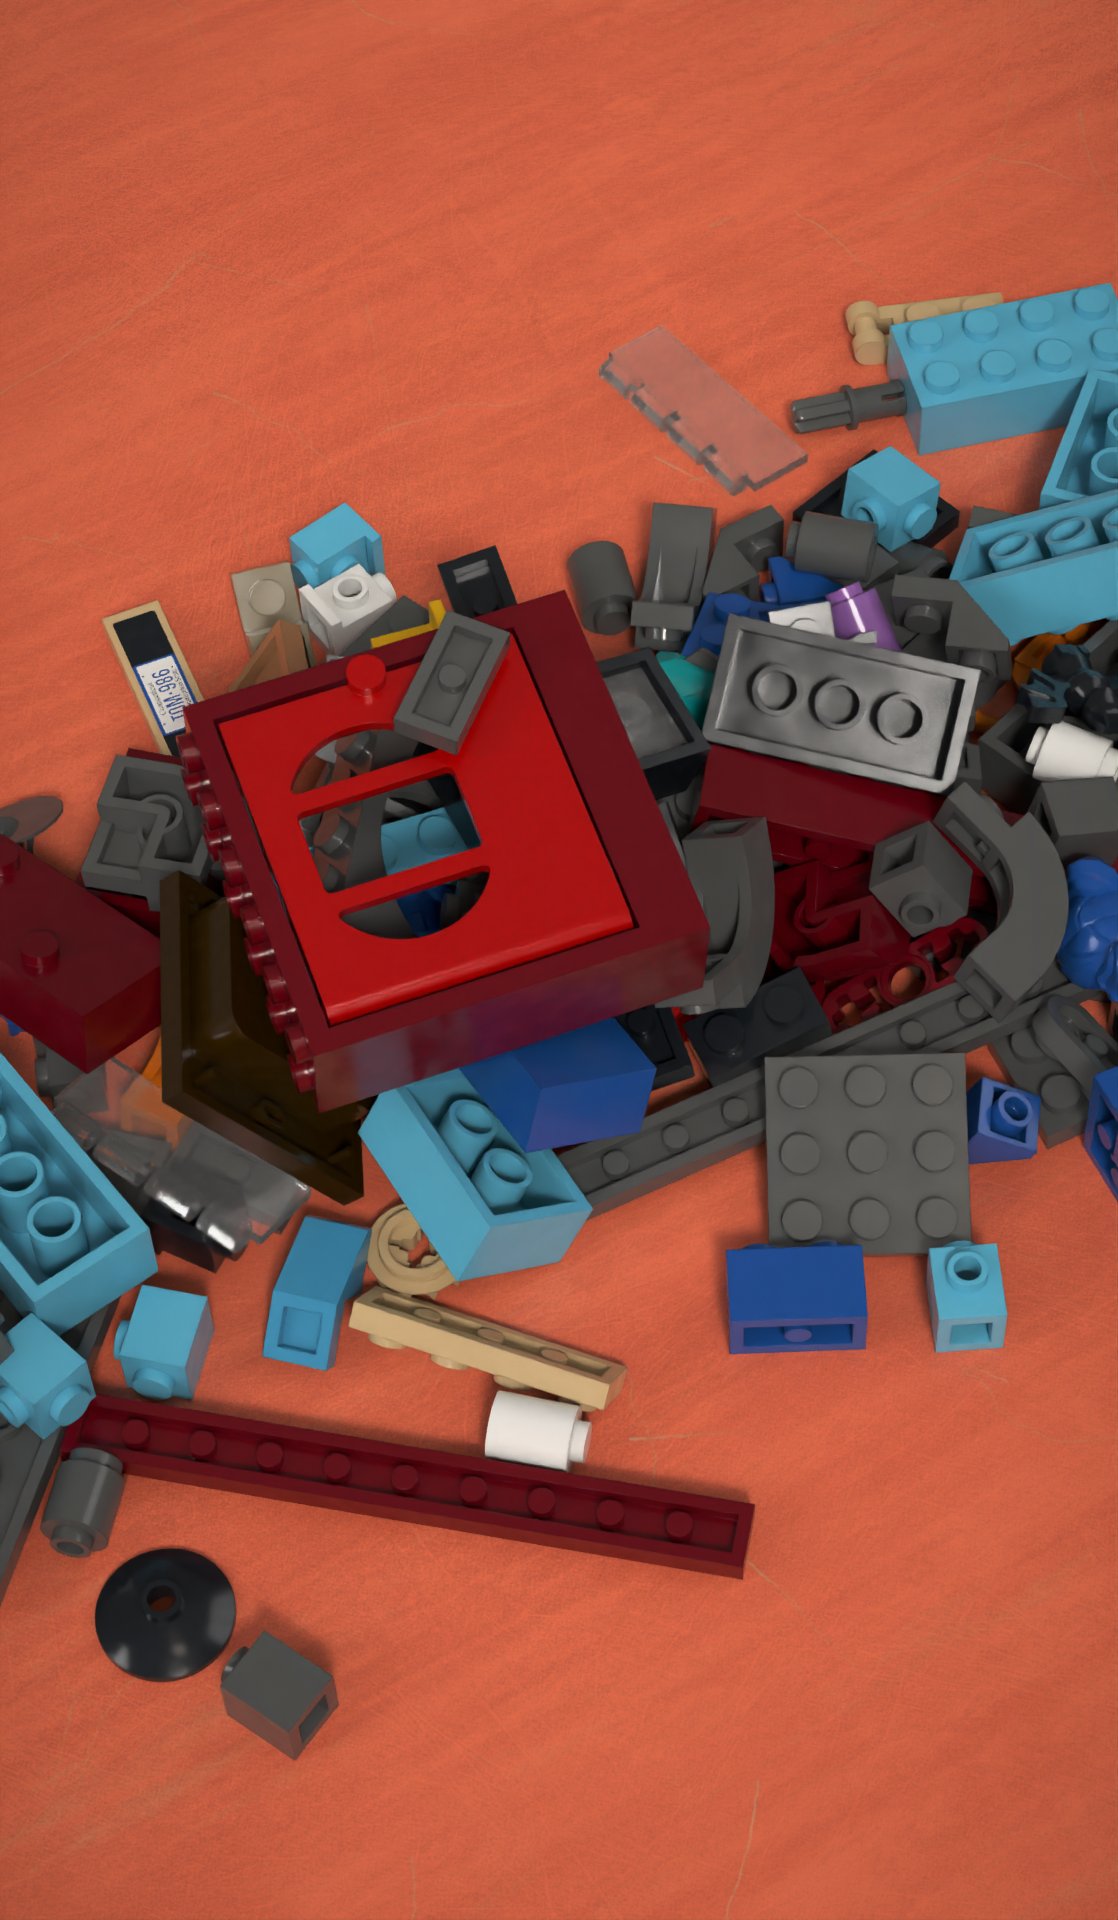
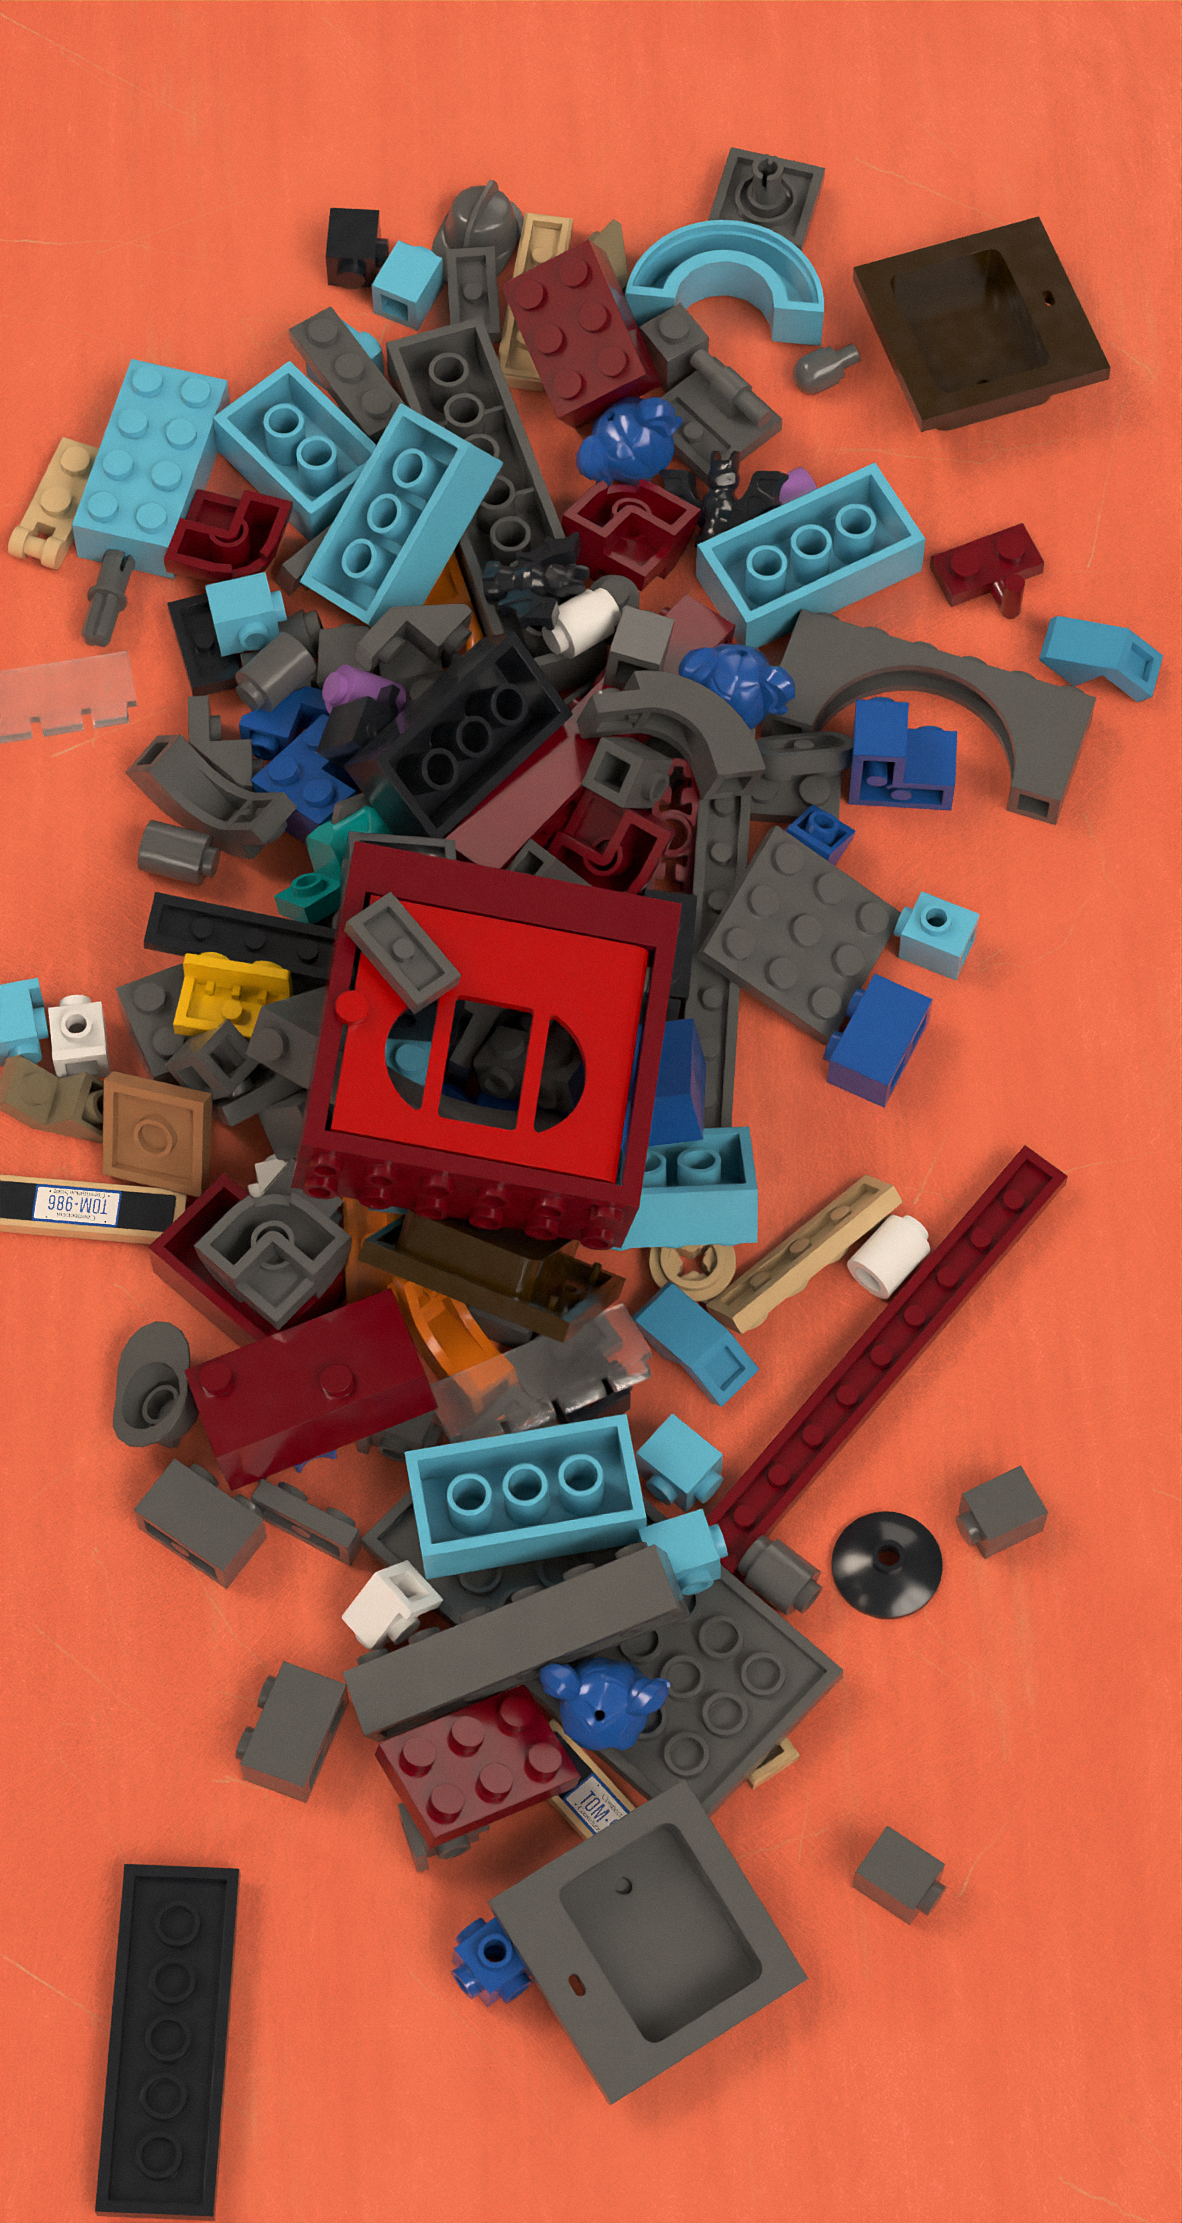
camera: 65 degrees left, 10 degrees up
(976, 456) = (227, 536): none -> dark red brick

